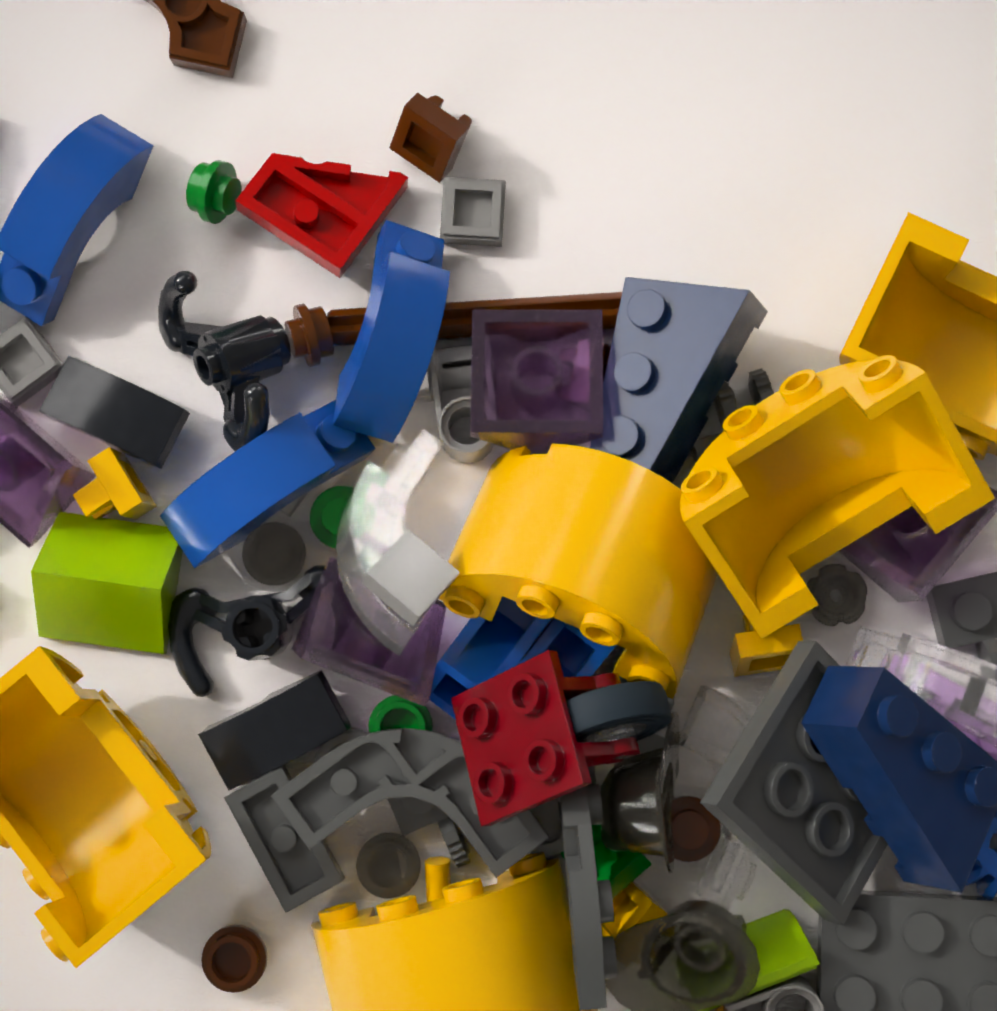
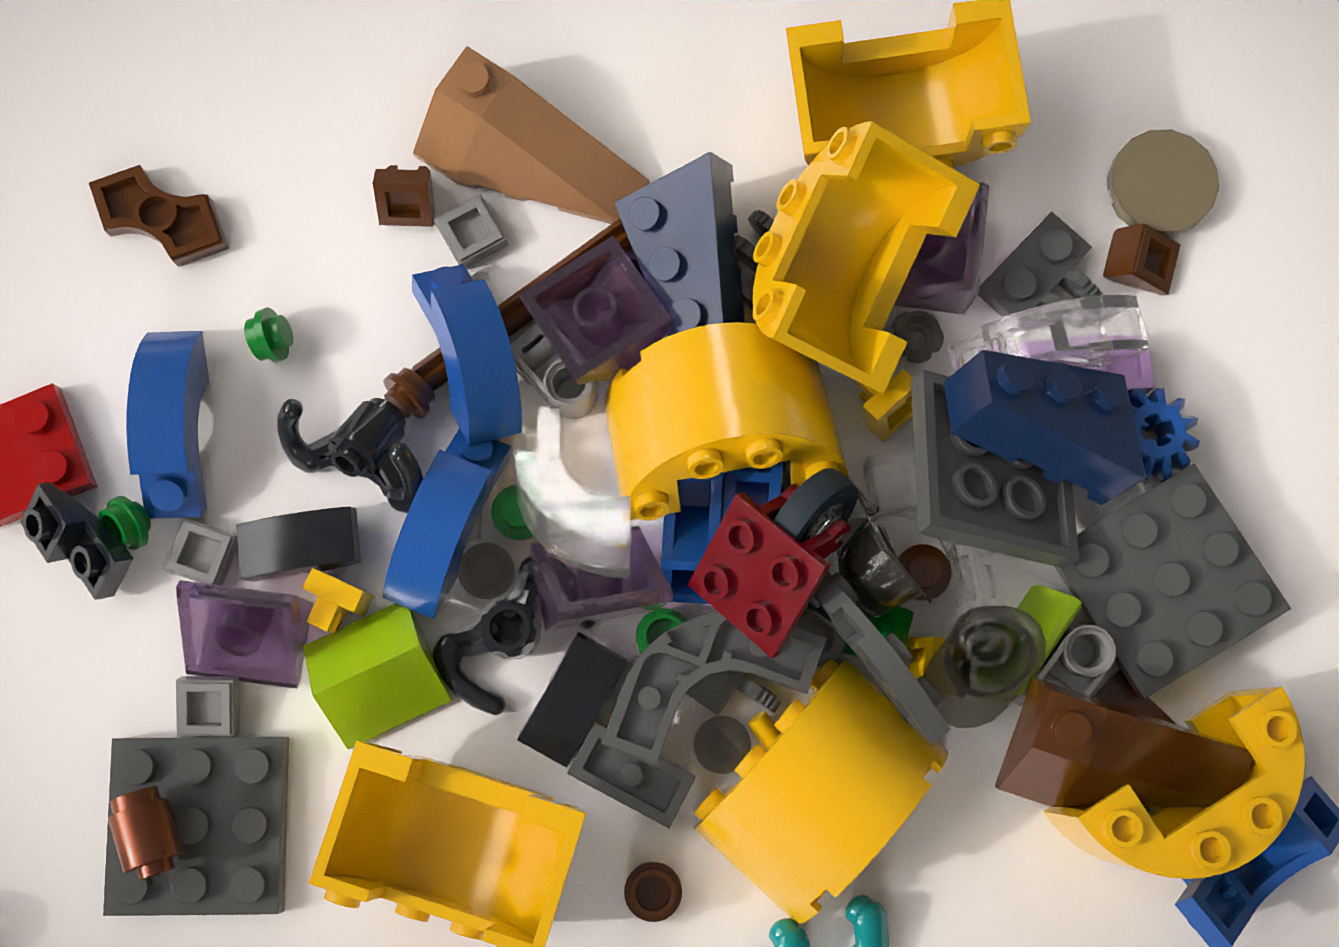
camera: 30 degrees left, 5 degrees down
(320, 206) = (355, 298): red wing -> none
(410, 577) = (600, 508): light grey tile -> none
(566, 143) = (508, 139): none -> medium nougat wedge

